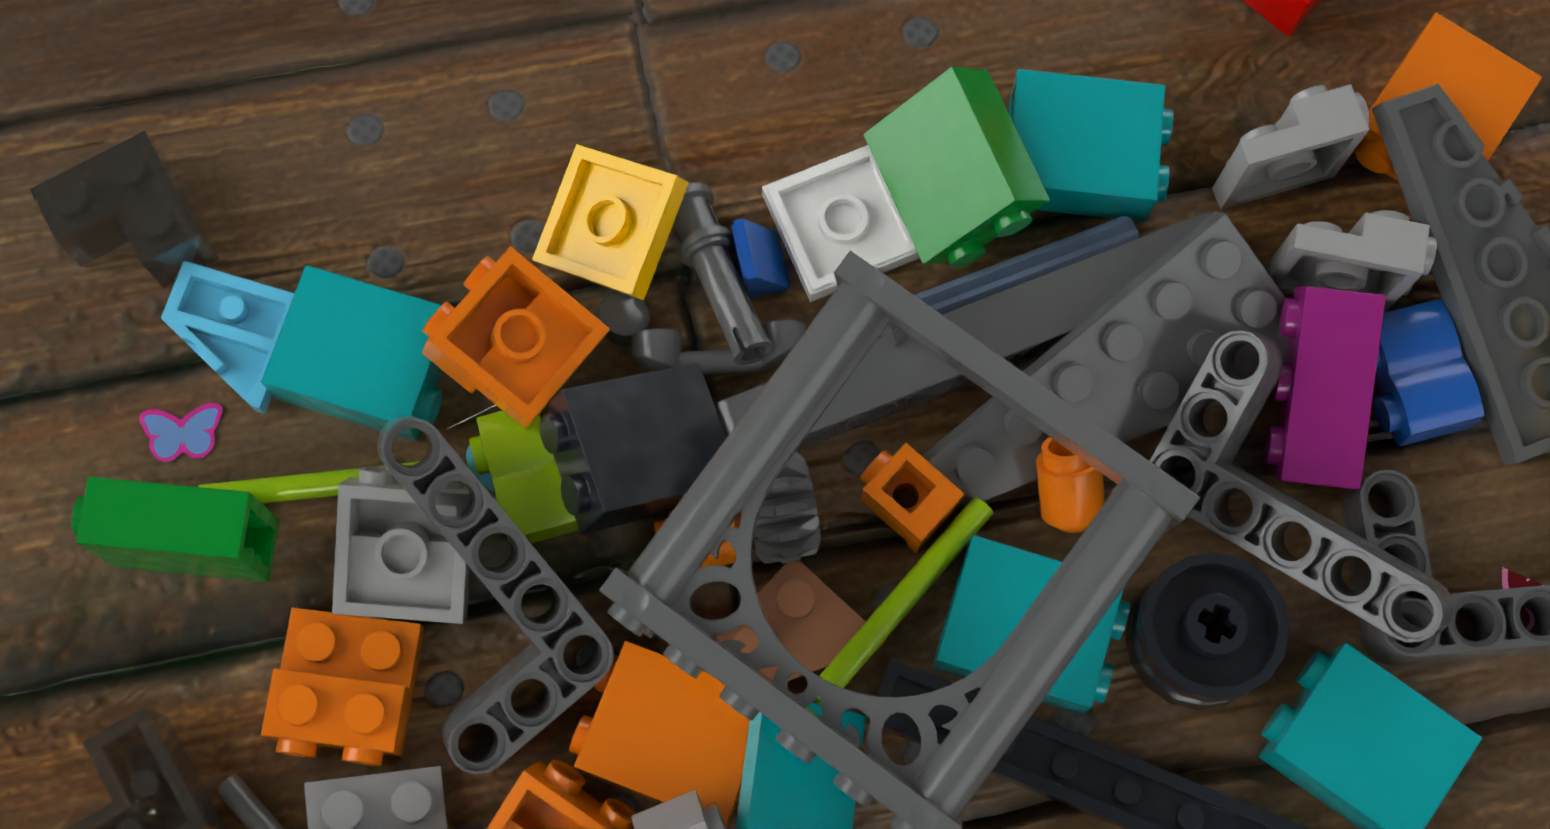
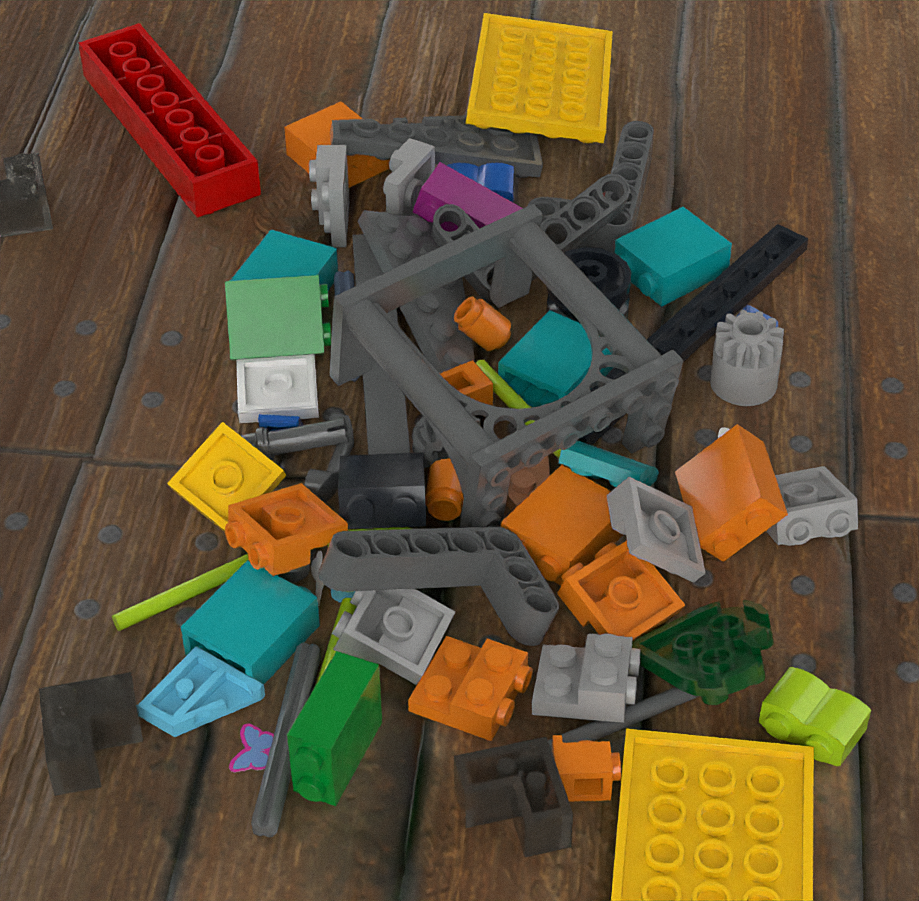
camera: 70 degrees left, 30 degrees down
(209, 464) = (278, 769): none -> dark grey axle
(401, 229) = (177, 594): none -> lime bar

